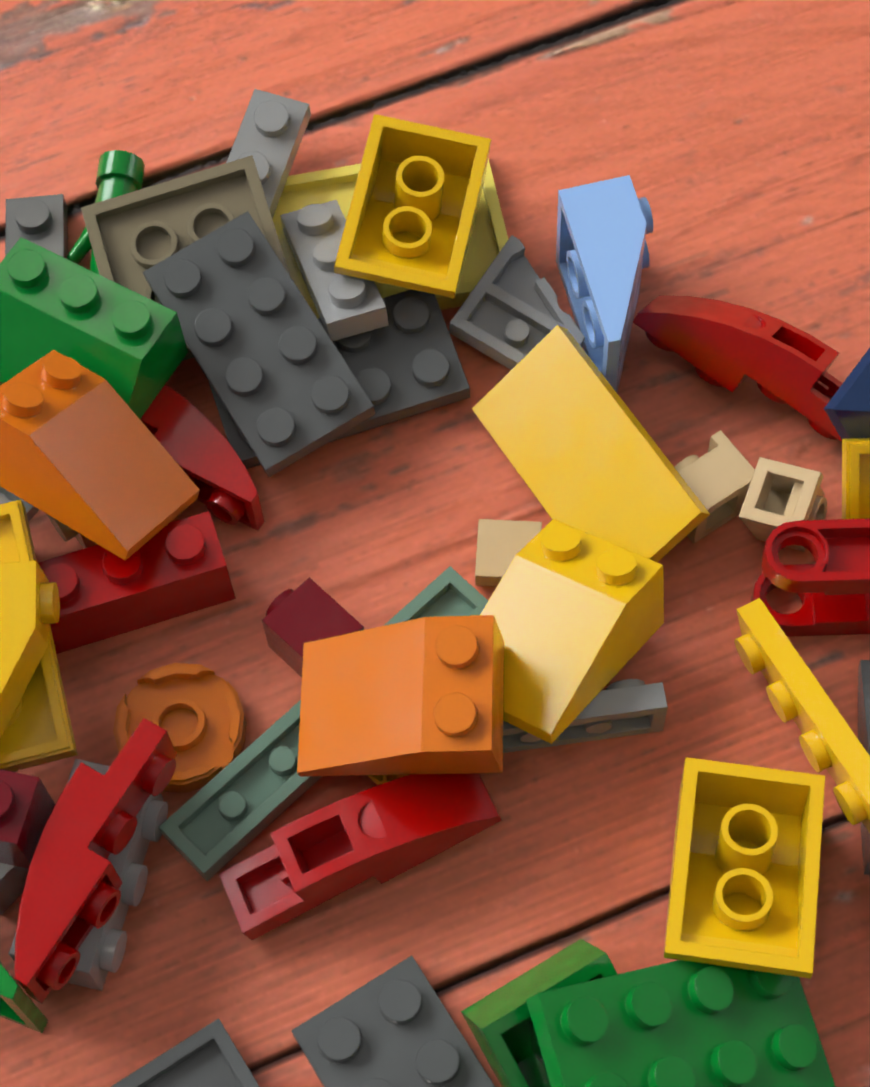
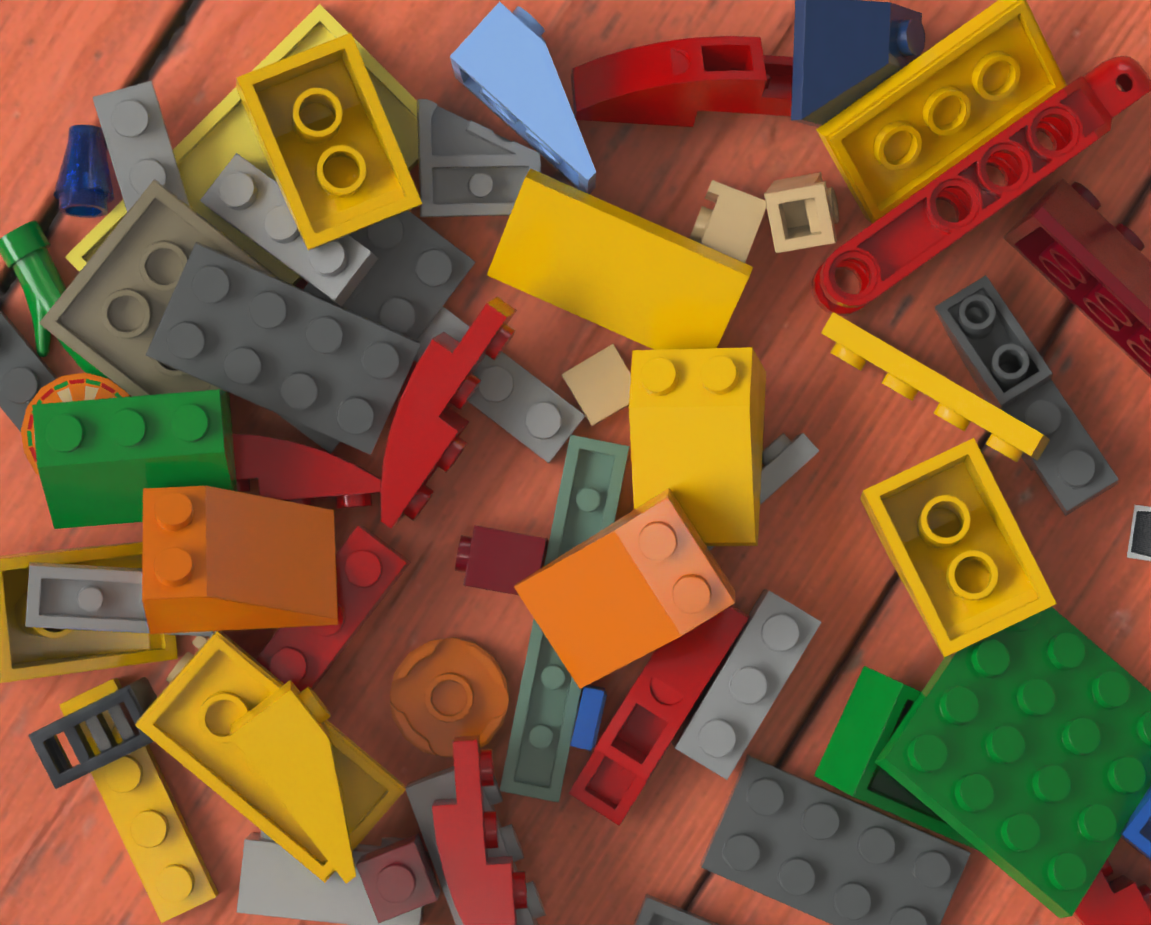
camera: 40 degrees left, 25 degrees up
(204, 149) = (84, 175): none -> clear blue cone
(291, 804) = (589, 717): none -> blue tile
(326, 475) = (424, 425): none -> red slope
(416, 498) = (512, 395): none -> light grey plate
(456, 878) = (746, 684): none -> light grey brick

